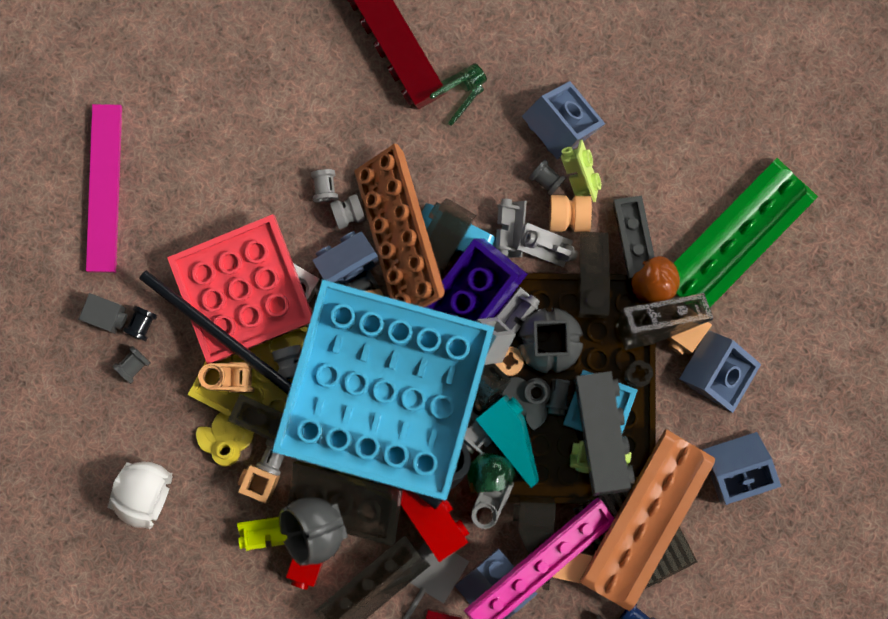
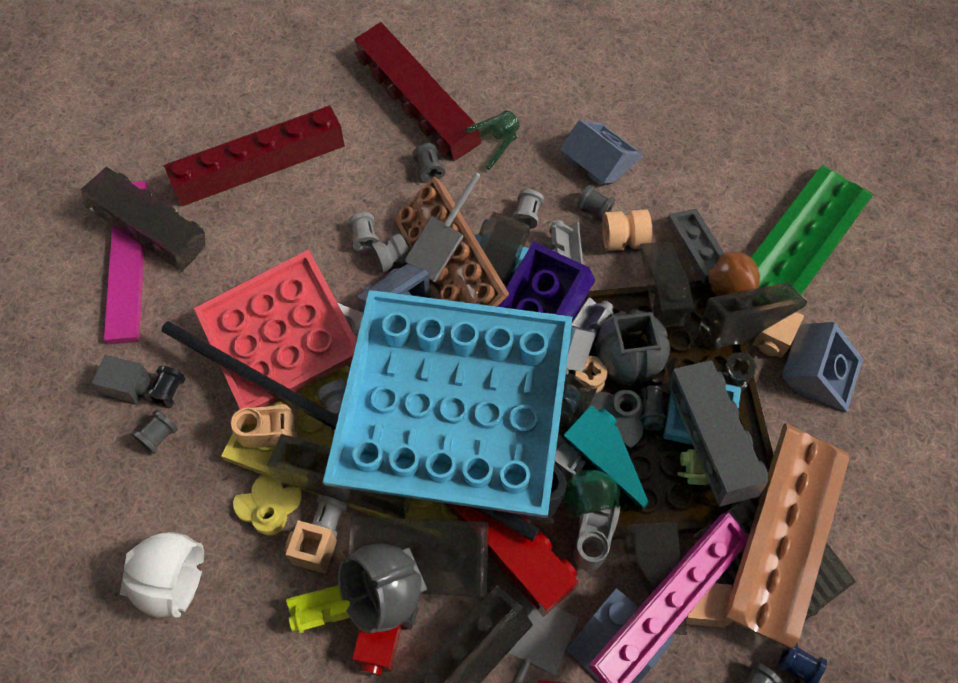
camera: 10 degrees left, 20 degrees down
(121, 153) = (144, 218): none -> clear smoke brick
(226, 90) = (255, 155): none -> dark red brick
(388, 222) = (438, 239): none -> light grey piece
(393, 114) = (428, 162): none -> dark grey bush
(481, 177) = (528, 207): none -> light grey bush
(546, 245) = (608, 262): light grey hinge -> none
(581, 161) = (626, 178): yellowish green hinge -> none
(742, 469) = (882, 467): sand blue slope -> none

